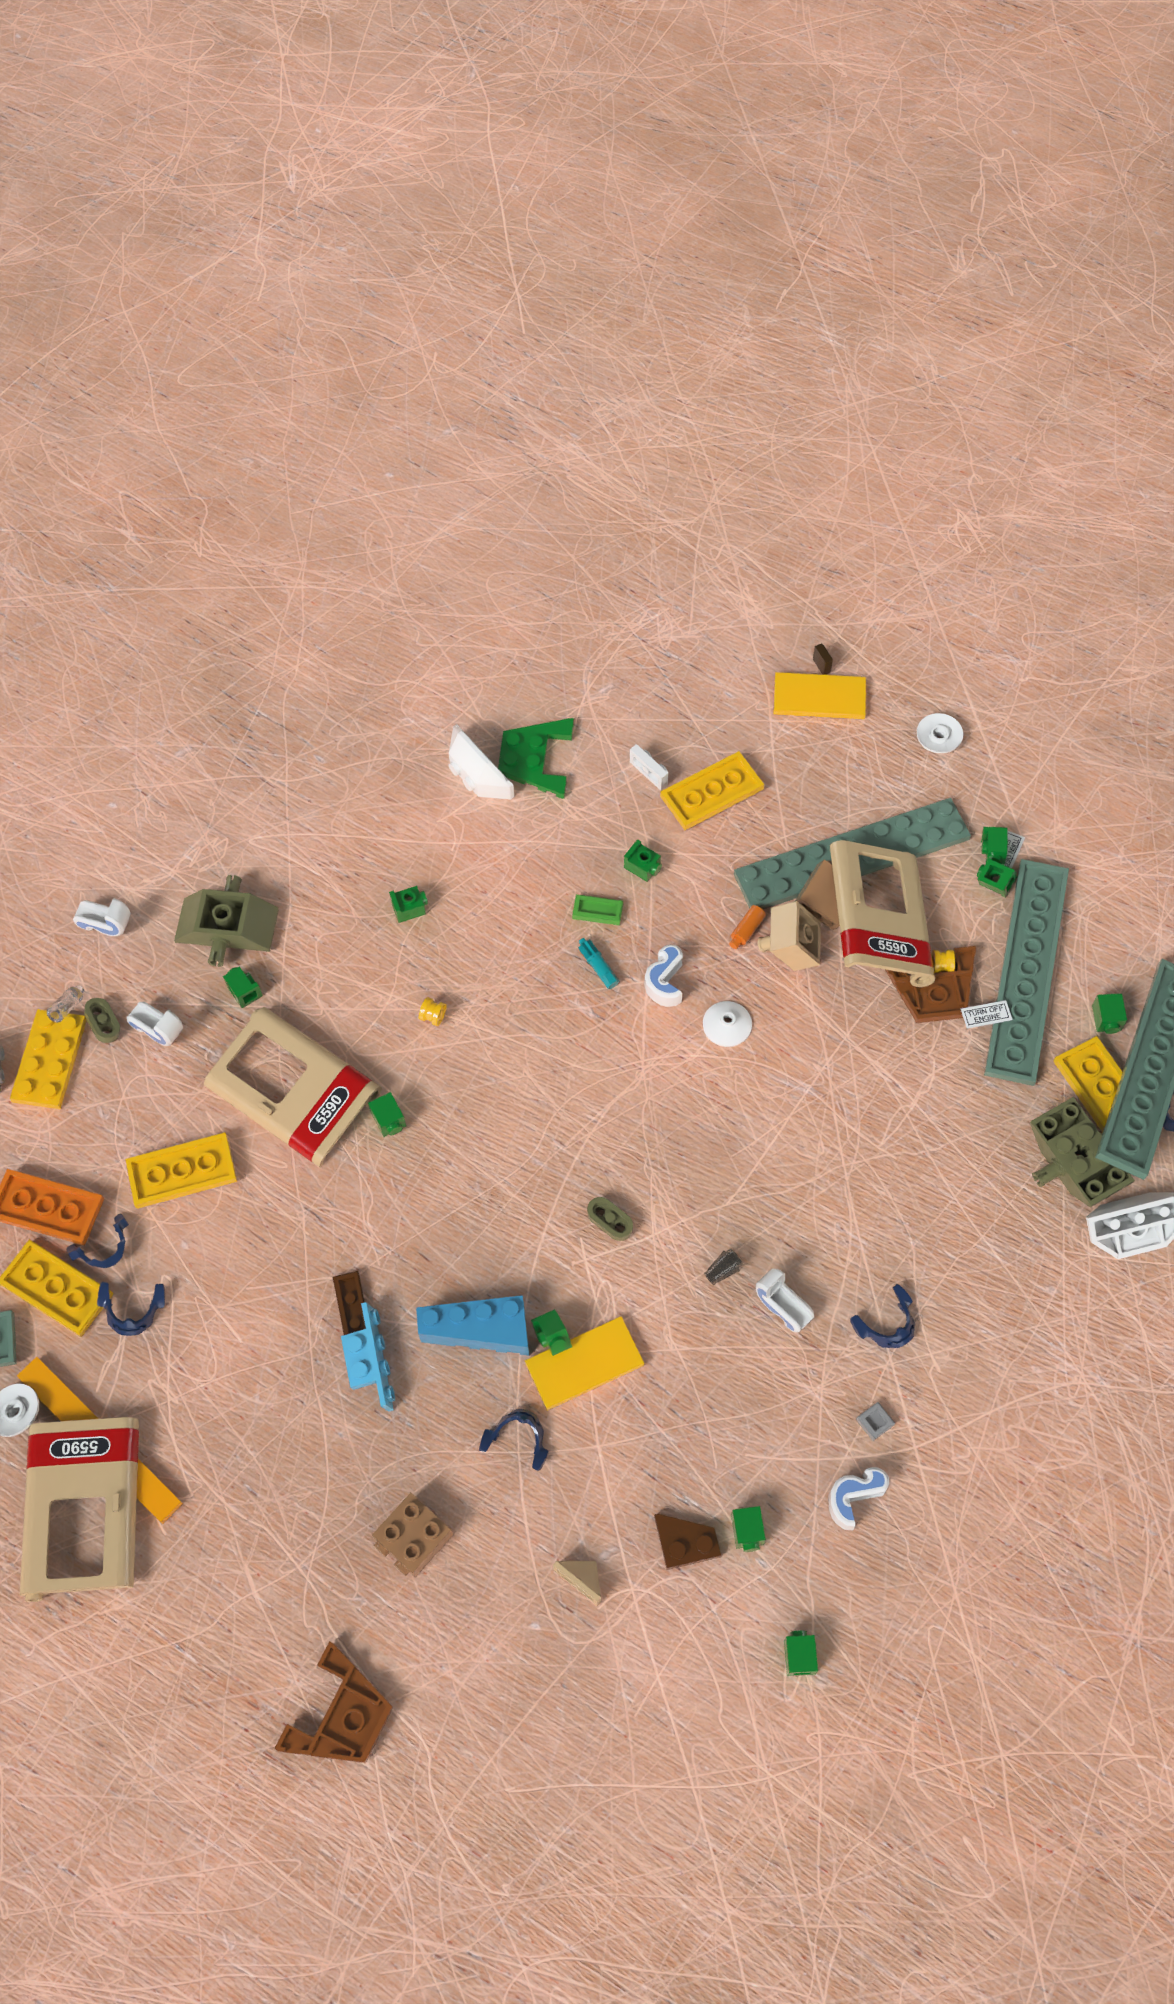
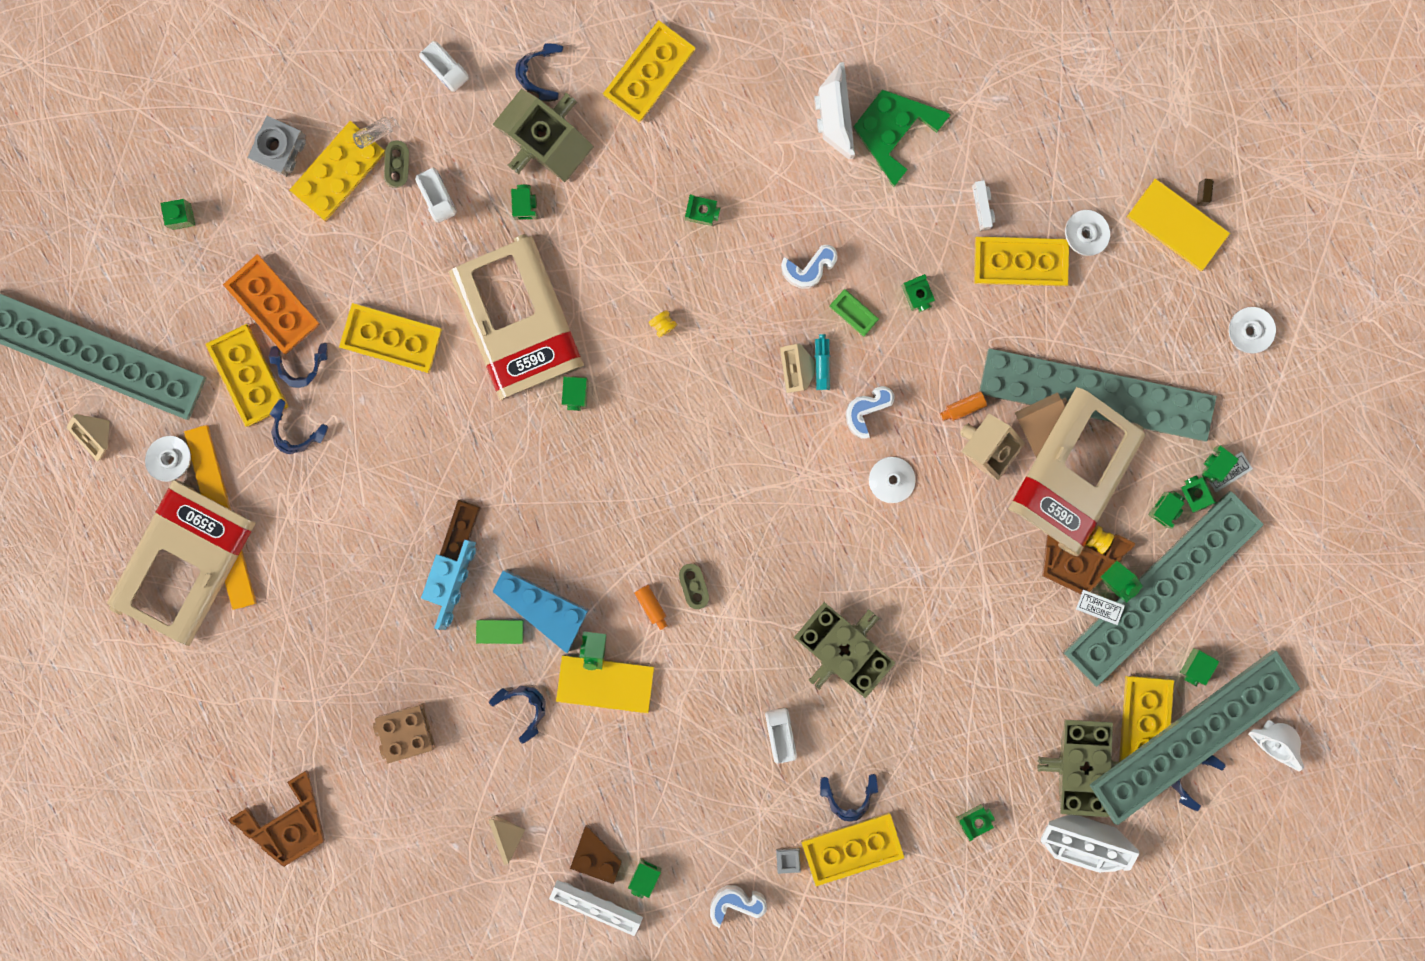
camera: 40 degrees right, 25 degrees up
(174, 880) = (522, 67): none -> dark blue helmet
(291, 825) = (649, 71): none -> yellow plate
(449, 1377) = (499, 631): none -> bright green tile
(539, 900) = (813, 271): none -> animal
(577, 979) = (797, 367): none -> tan slope
(581, 1261) = (651, 606): none -> orange cylinder
(719, 1591) = (595, 907): none -> white plate
(723, 1267) = (754, 678): clear smoke cone -> none
(750, 738) = (1094, 226): none -> white dish
(763, 1184) = (863, 664): none -> olive slope
(927, 1369) = (852, 849): none -> yellow plate
(980, 905) = (1167, 509): none -> green brick
(988, 981) = (1122, 581): none -> green brick
(1017, 1275) = (969, 817): none -> green brick

